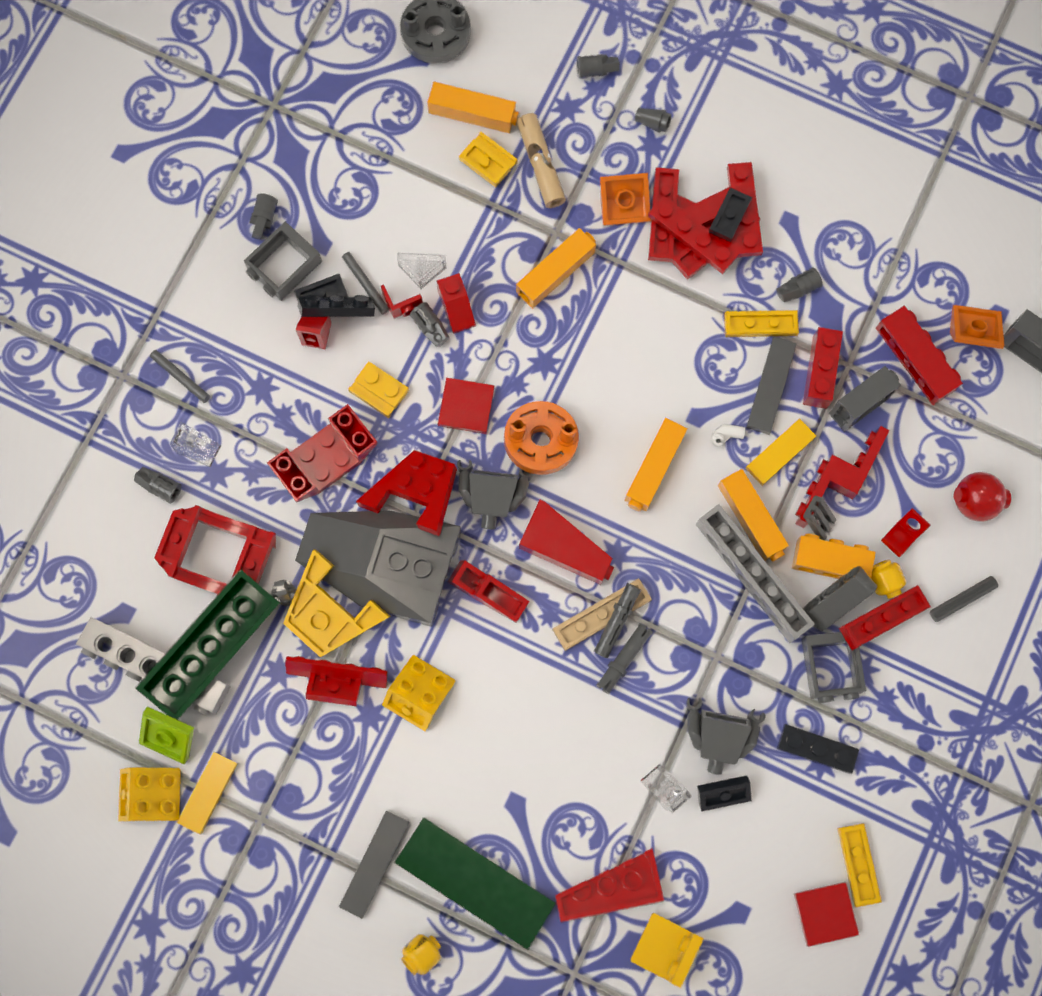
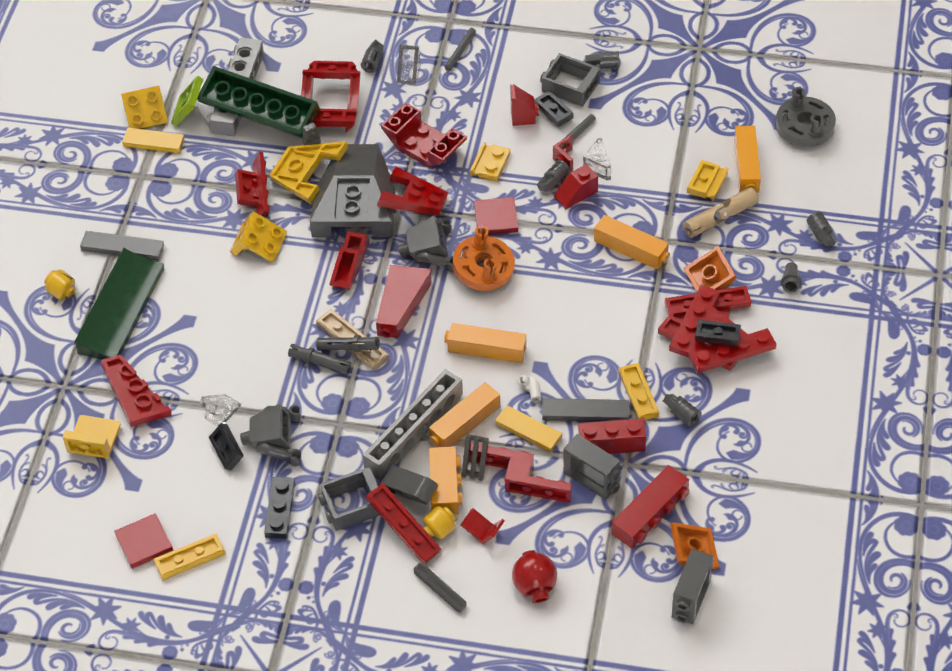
camera: 80 degrees right, 25 degrees down
(336, 306) = (544, 114): black plate -> none

